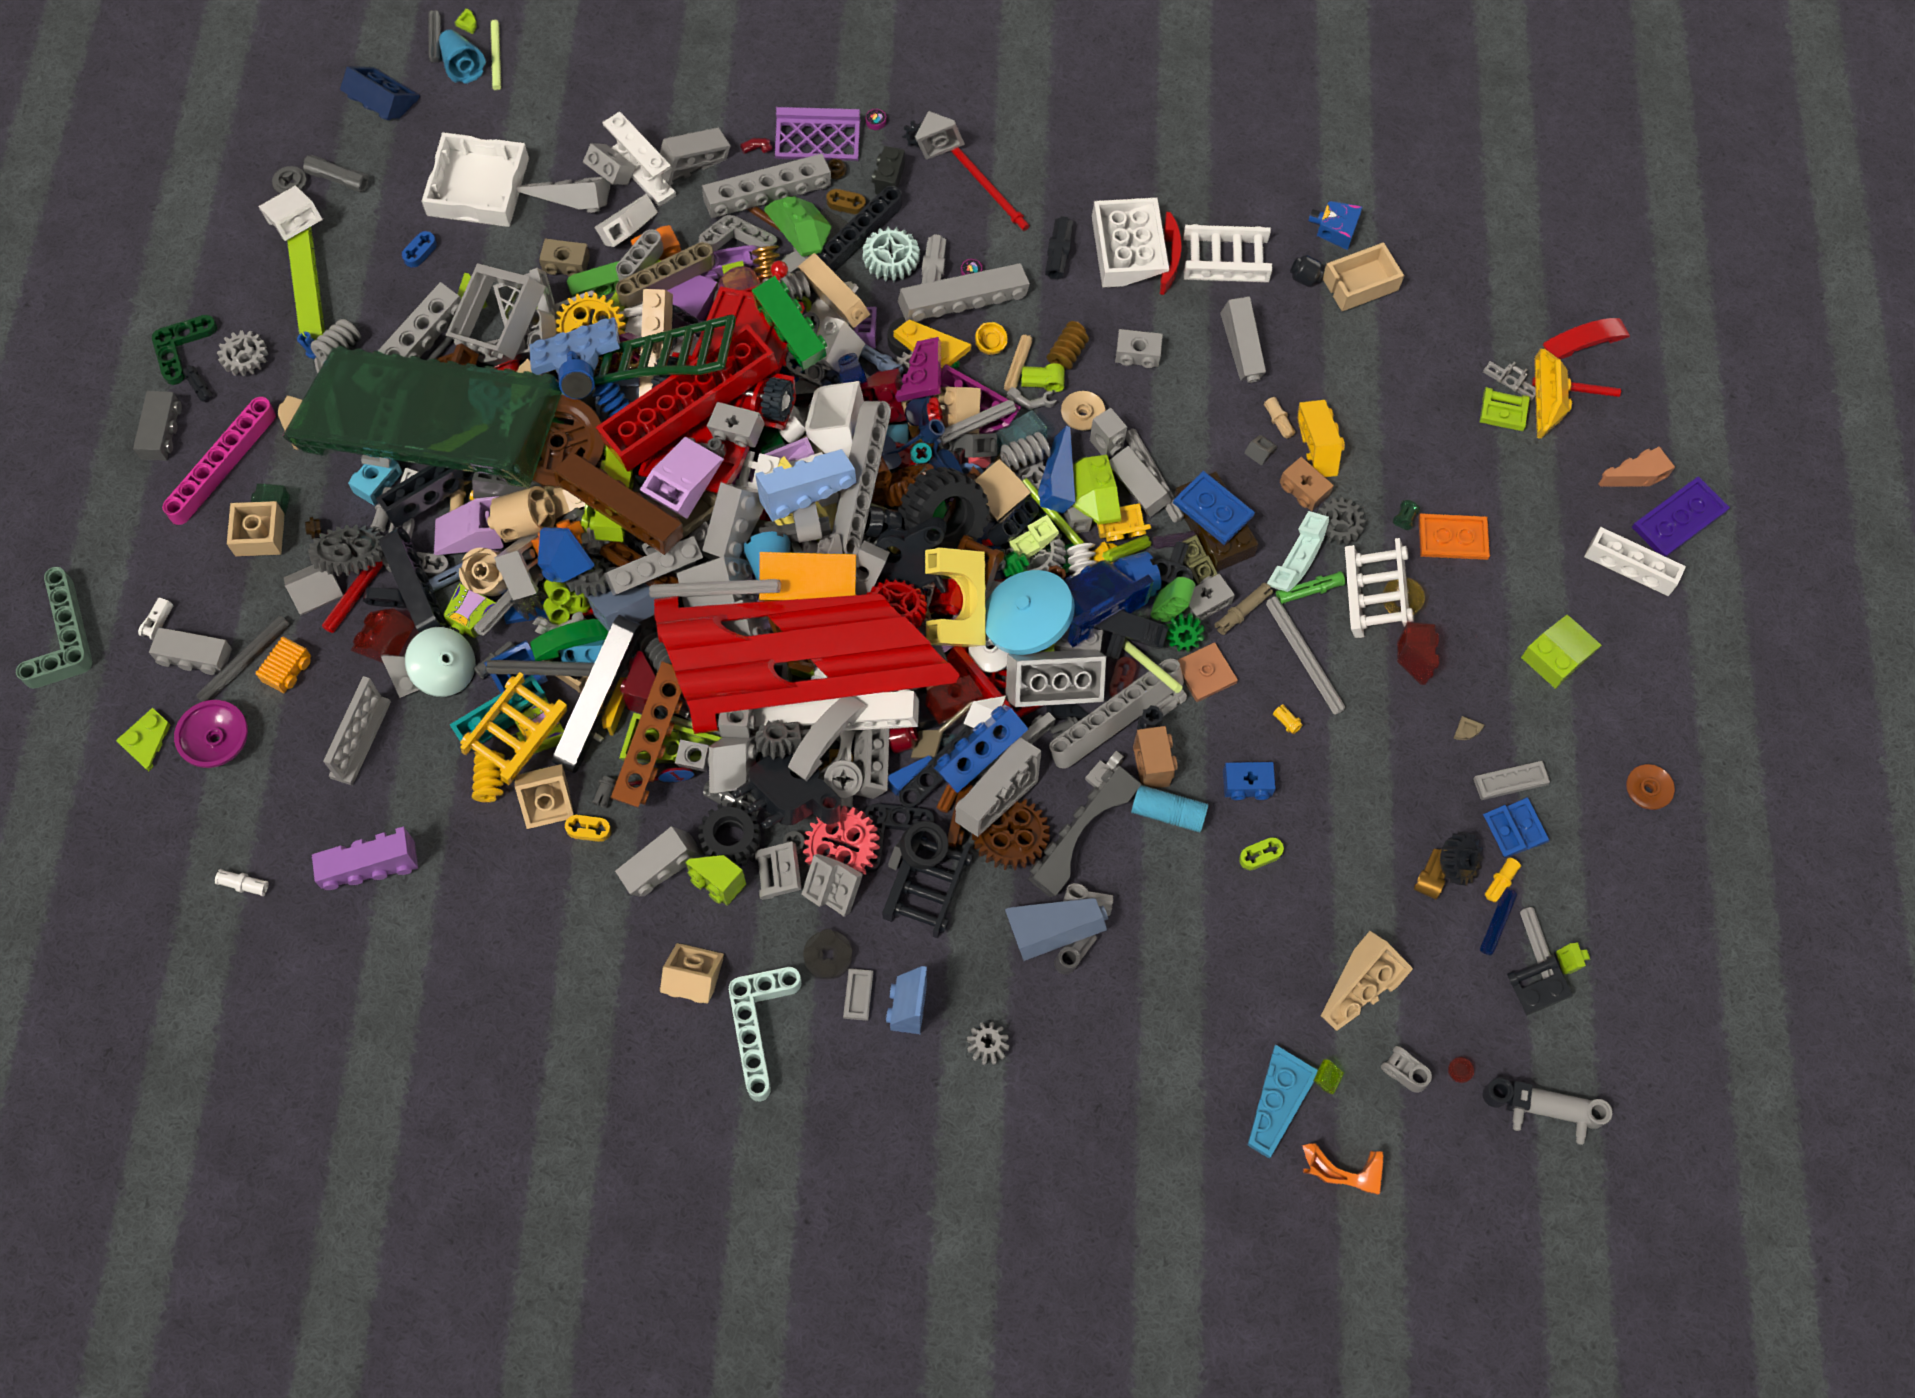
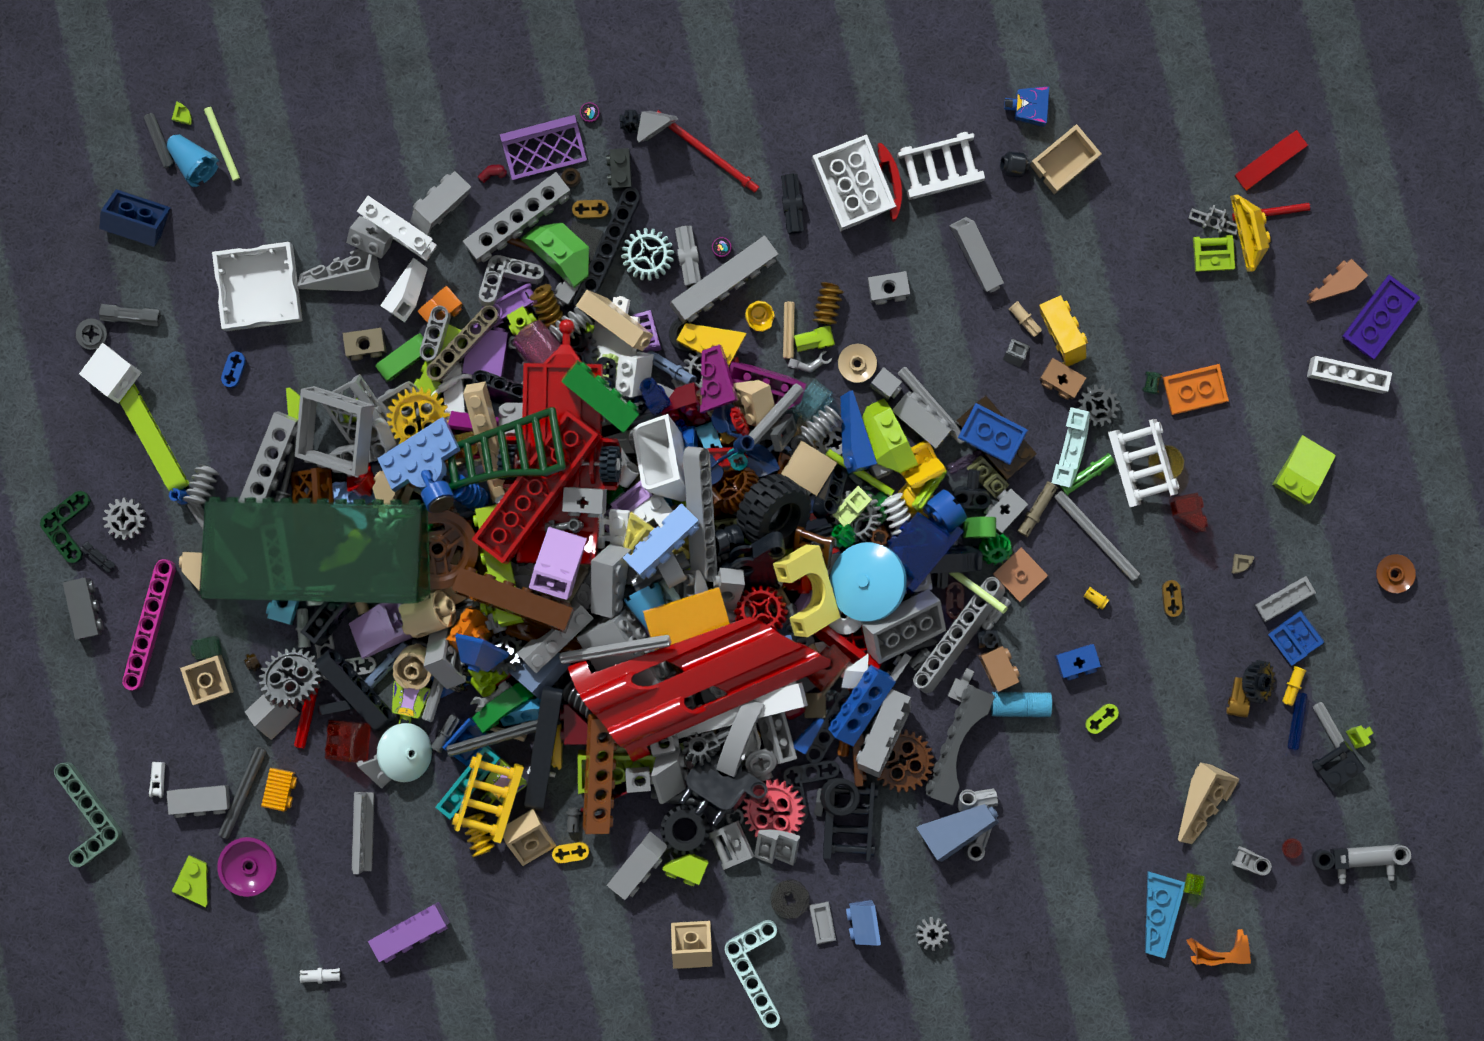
camera: 15 degrees left, 20 degrees up
(1382, 745) = (1176, 597): none -> pearl gold beam

